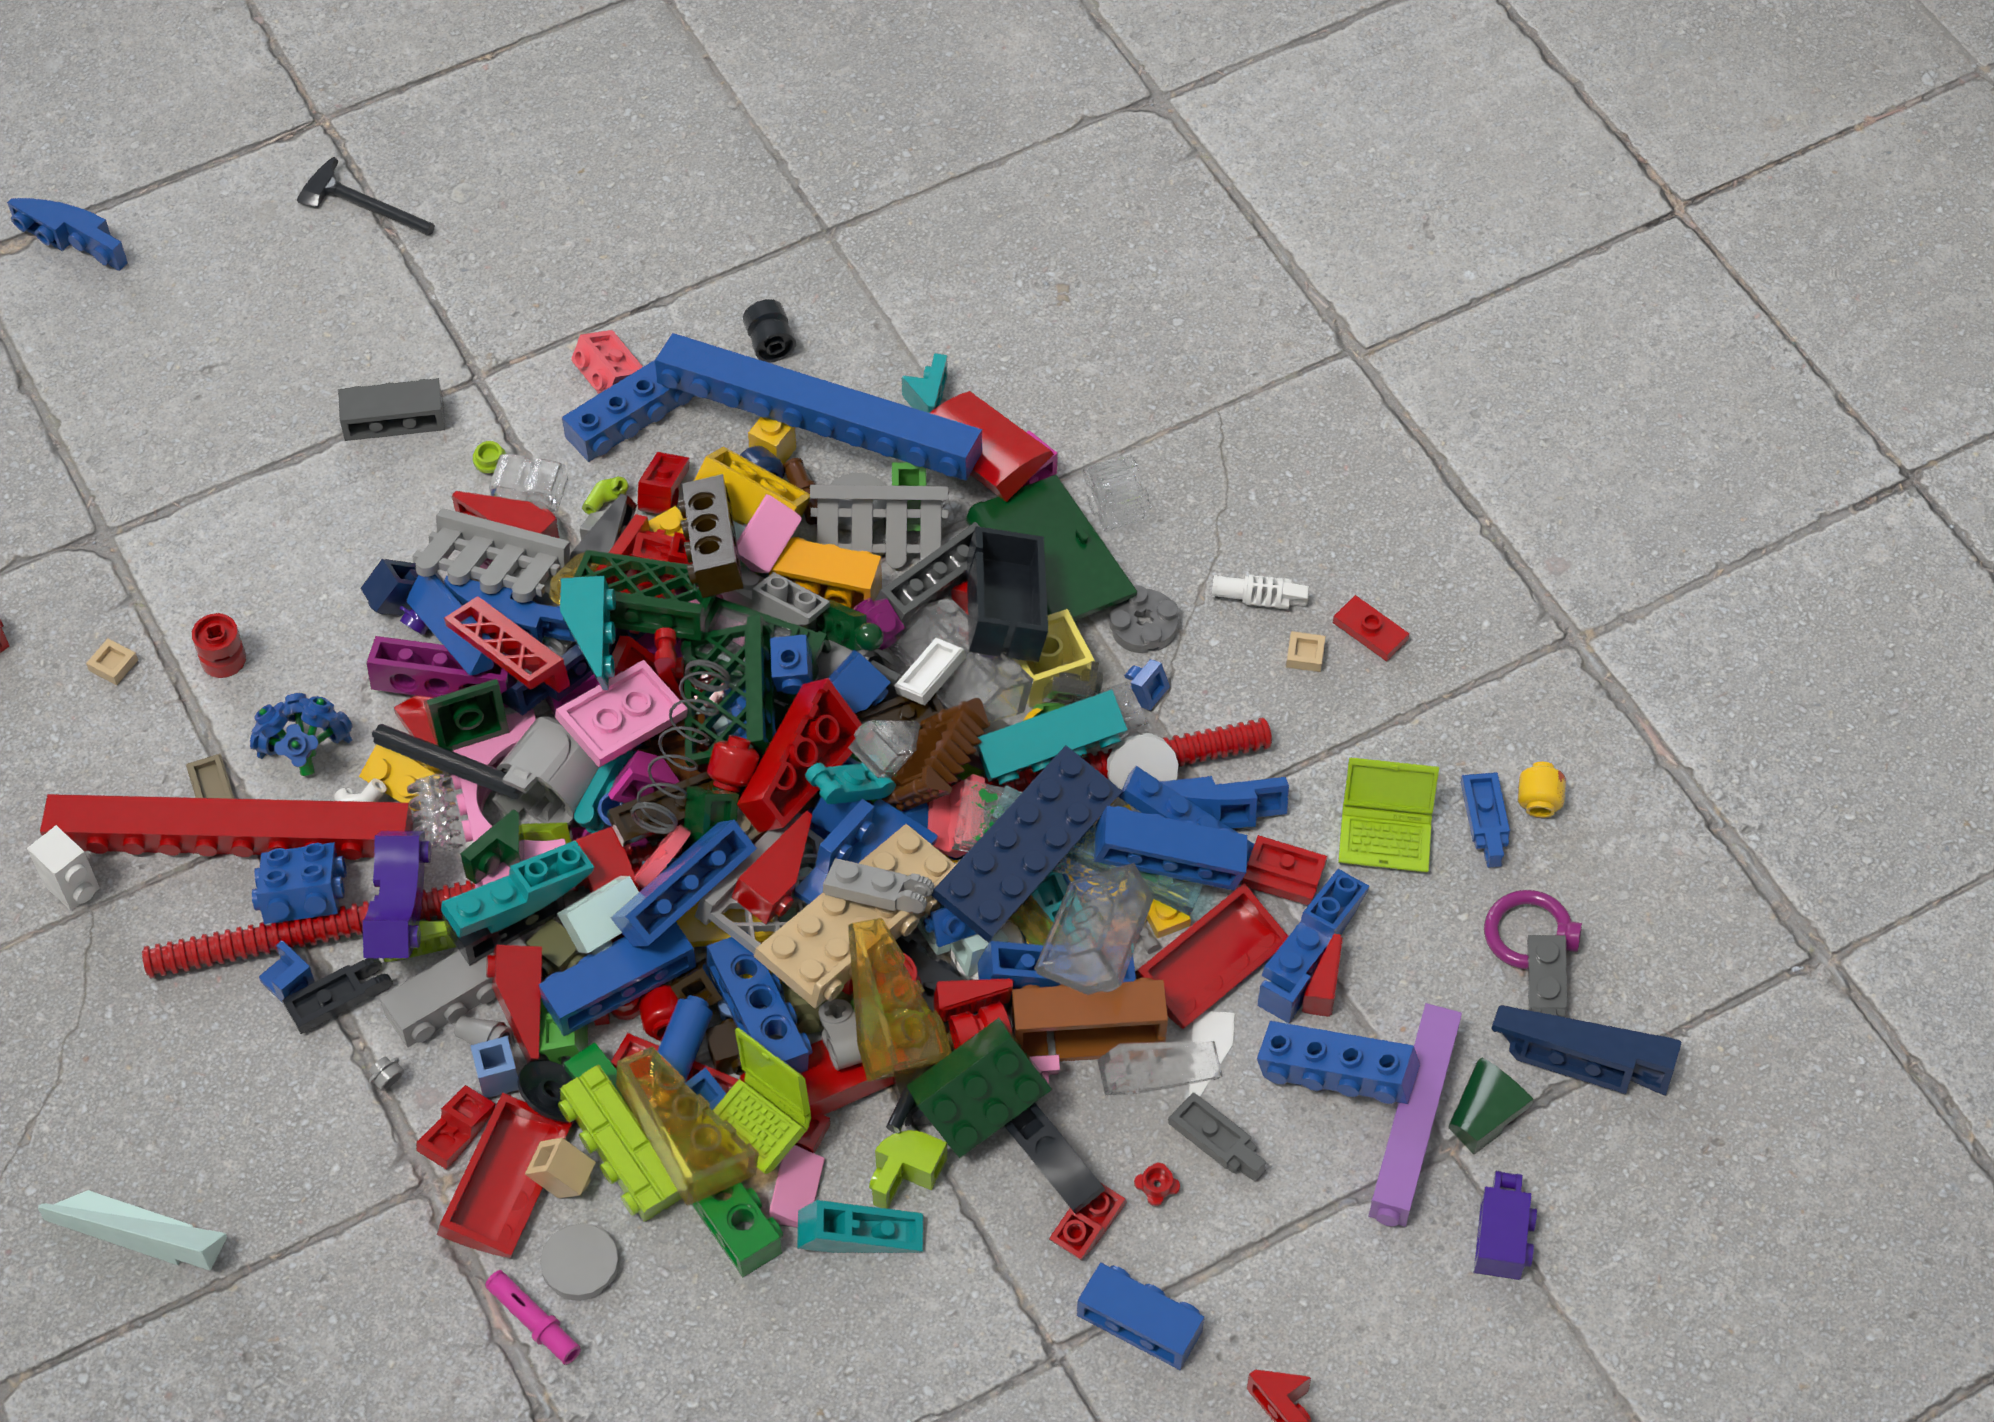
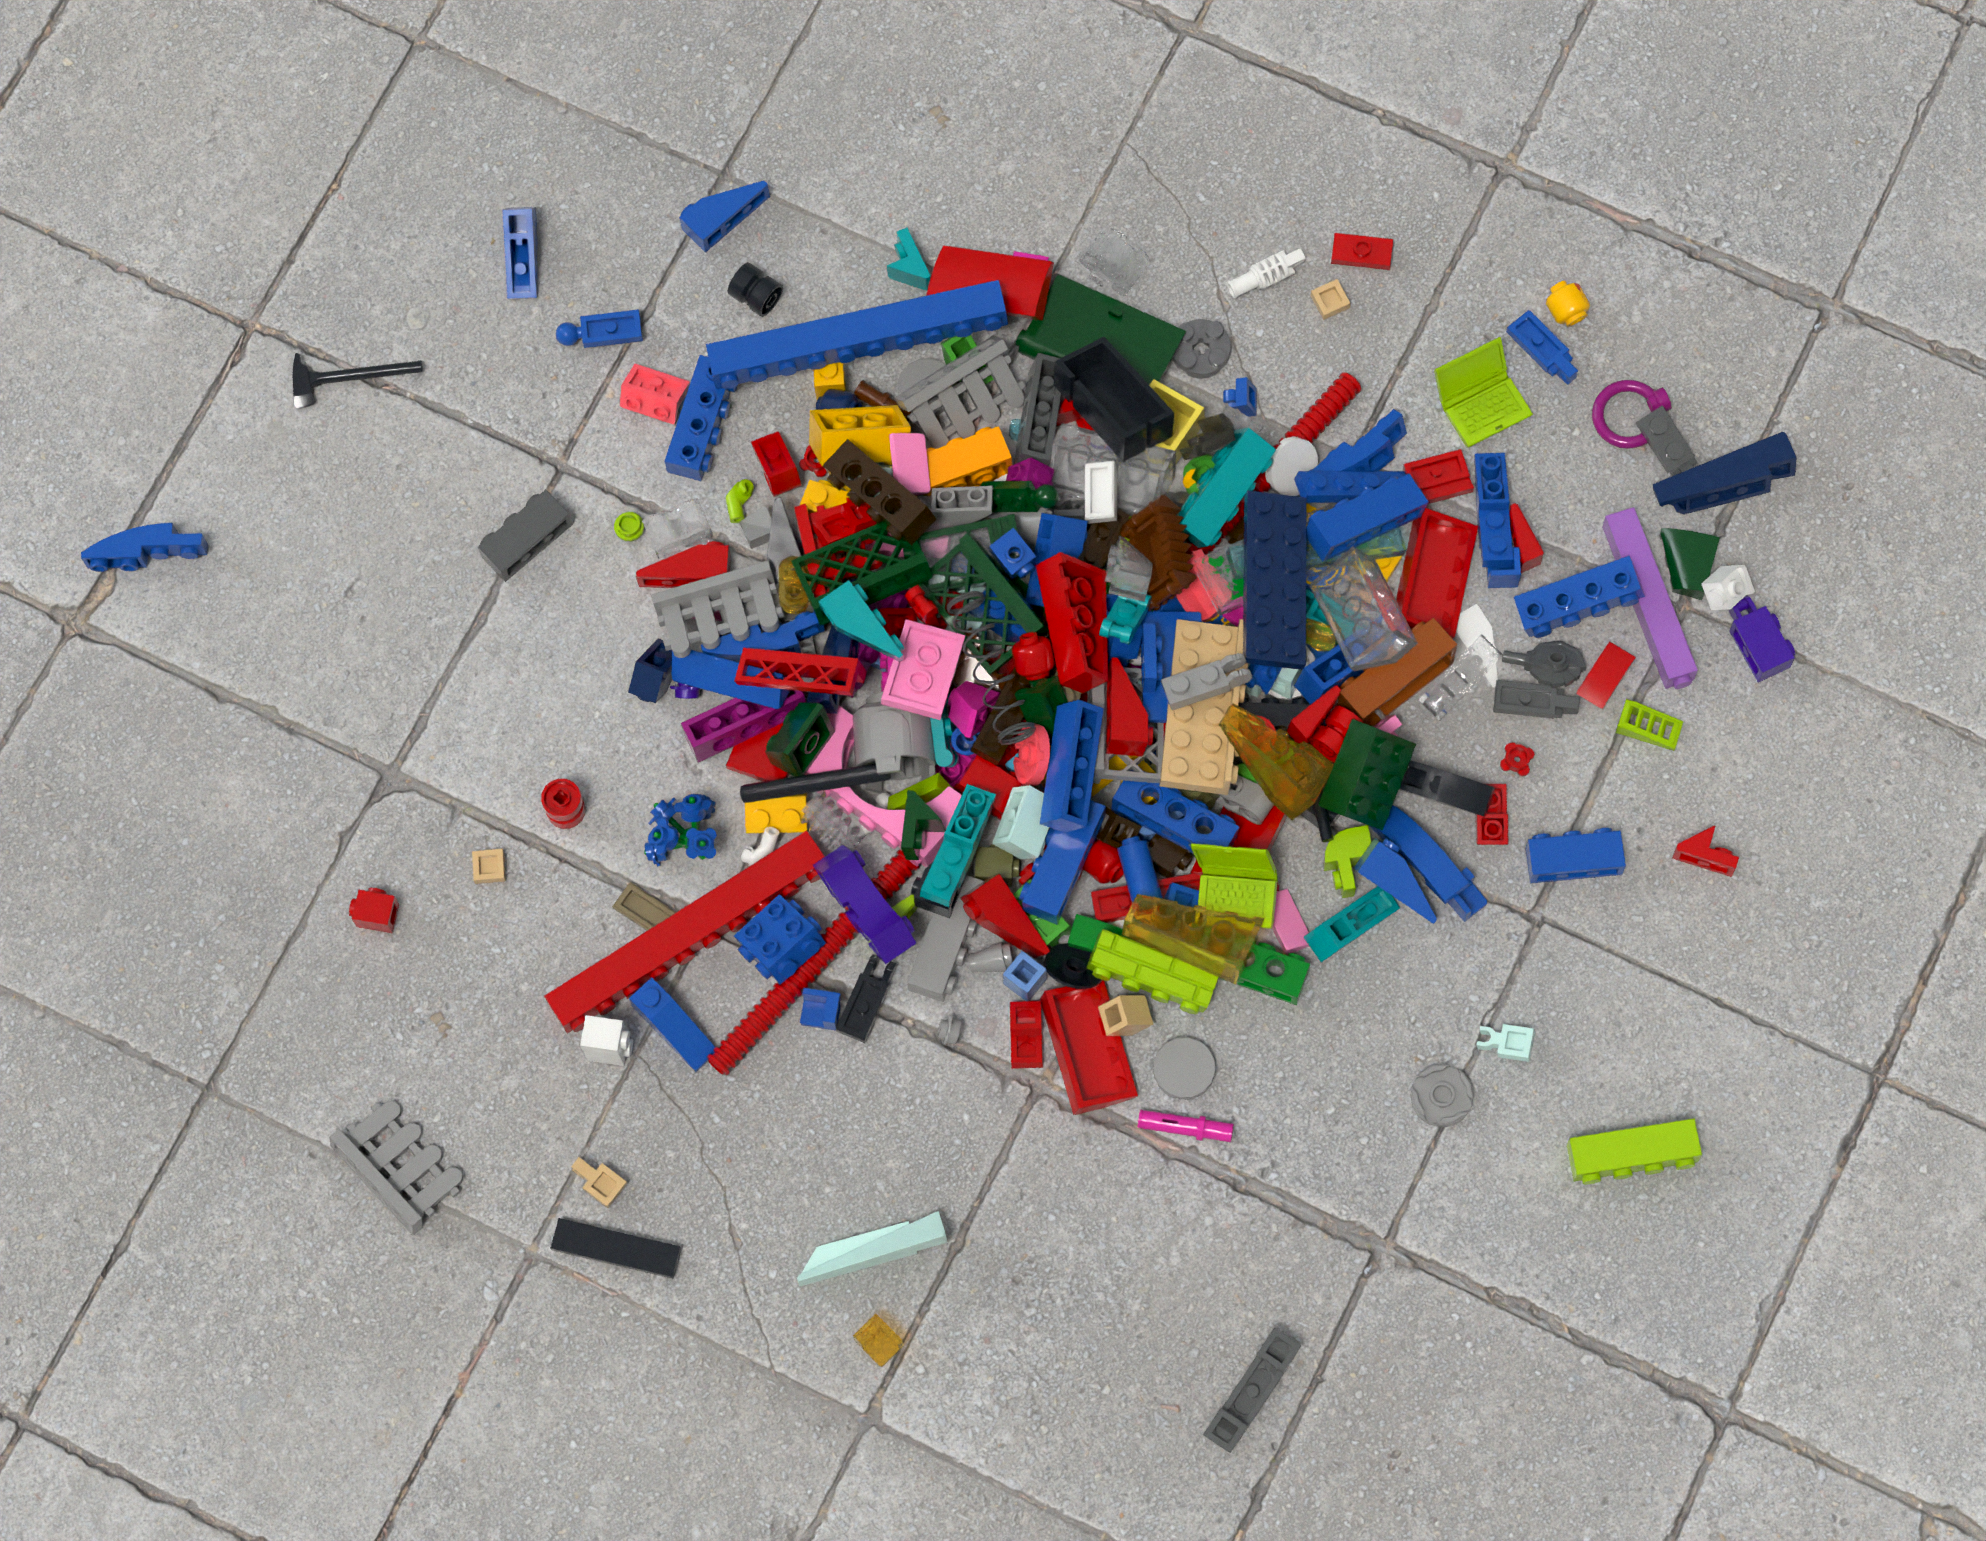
camera: 30 degrees left, 15 degrees up
(65, 1317) = (878, 1340): none -> clear yellow panel
(141, 895) = (672, 1024): none -> blue slope
(594, 185) = (520, 251): none -> slope
(609, 288) = (602, 329): none -> blue plate
(794, 255) = (718, 214): none -> blue slope
(931, 1203) = (1391, 873): none -> blue slope
(979, 1208) = (1423, 854): none -> blue slope
(996, 1278) = (1469, 900): none -> blue panel
(1262, 1111) = (1550, 663): none -> dark grey piece
(1311, 1159) = (1606, 675): none -> red slope
(1321, 1217) = (1642, 711): none -> lime slope
(1504, 1151) = (1727, 587): none -> white brick

